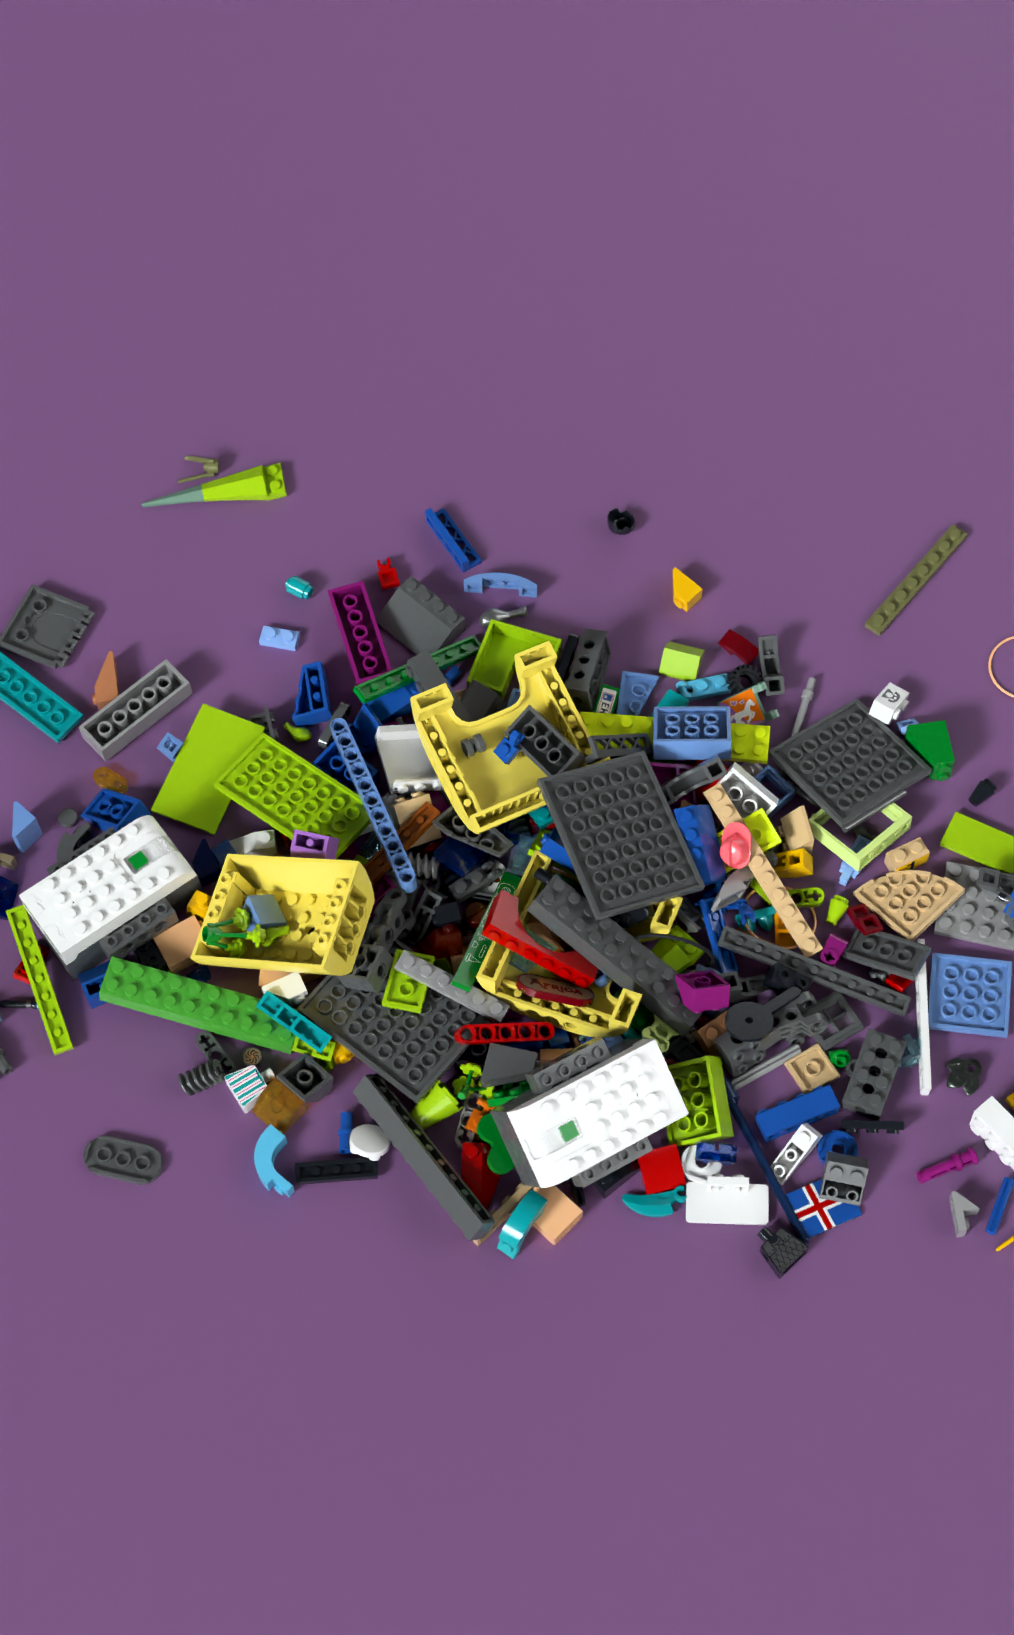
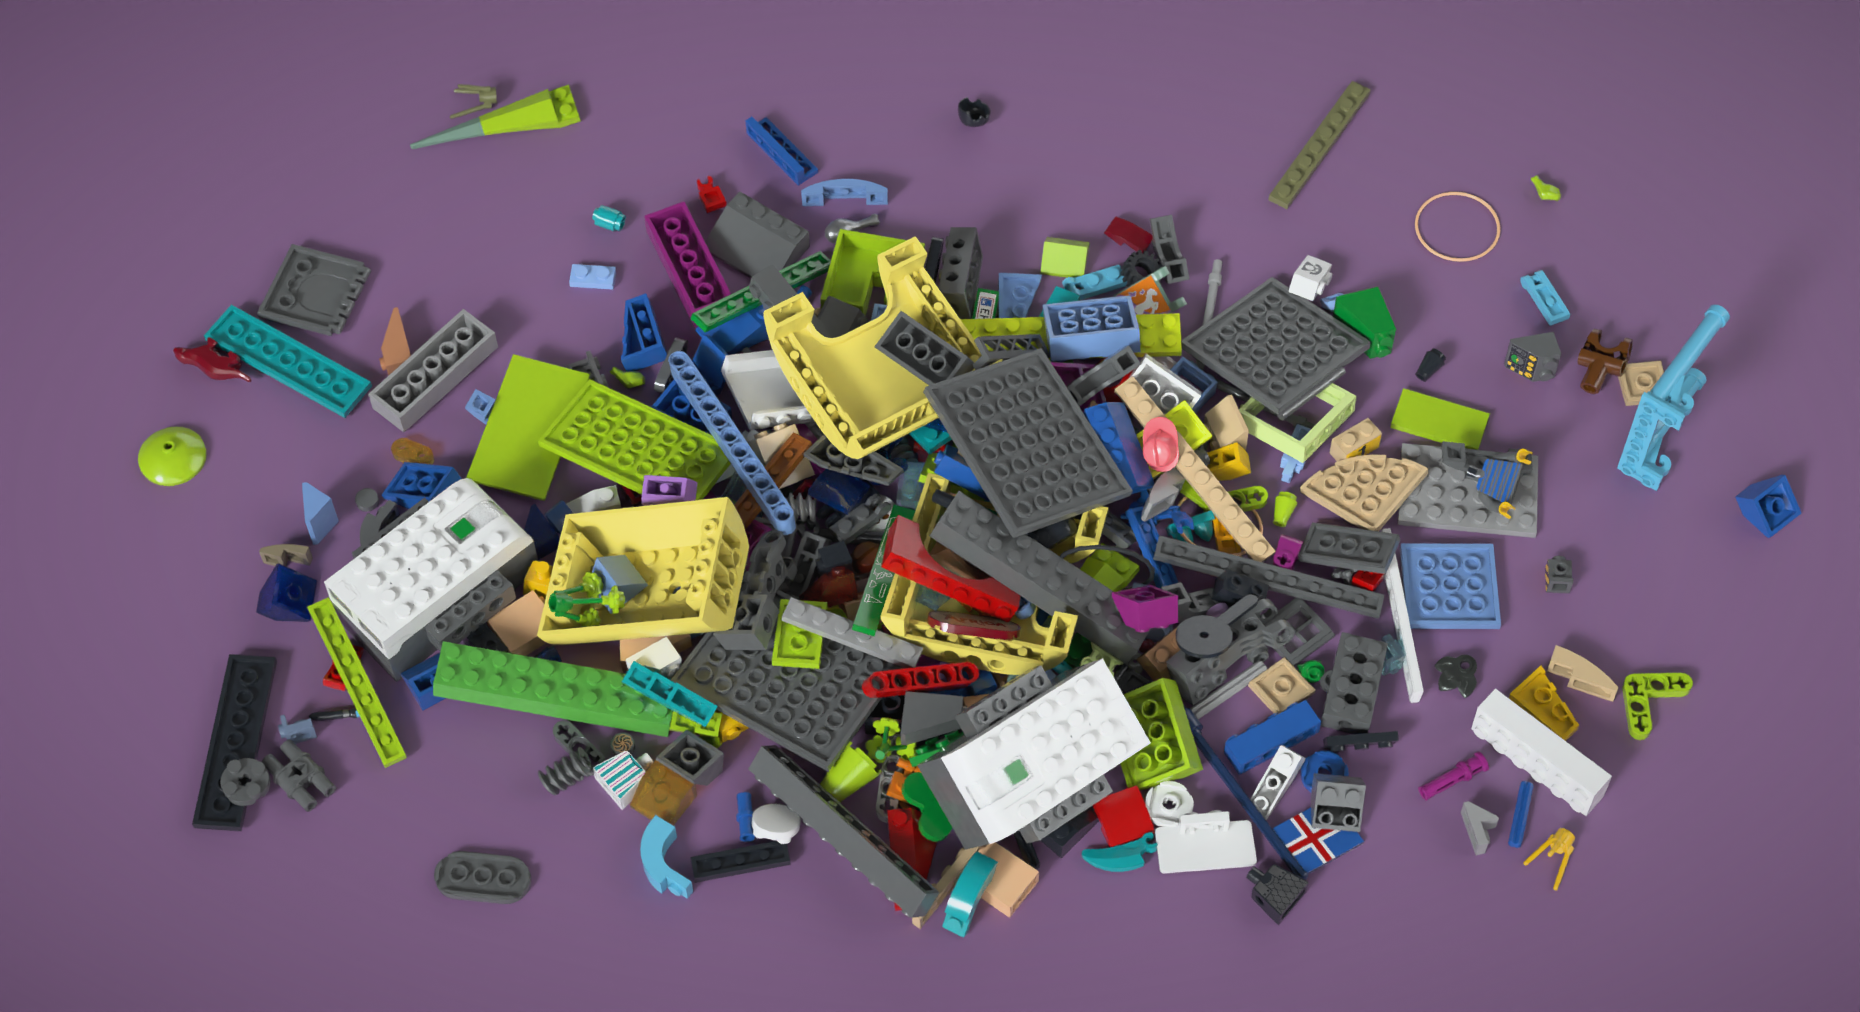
camera: 10 degrees left, 5 degrees down
(274, 933) = (633, 597): lime animal -> none
(473, 745) = (841, 363): dark grey wheel -> none
(508, 747) = (881, 362): blue plate -> none
(685, 591) = (1058, 179): yellow slope -> none
(707, 1153) = (1196, 790): clear blue hinge -> none
(864, 920) = (1317, 516): dark red slope -> none

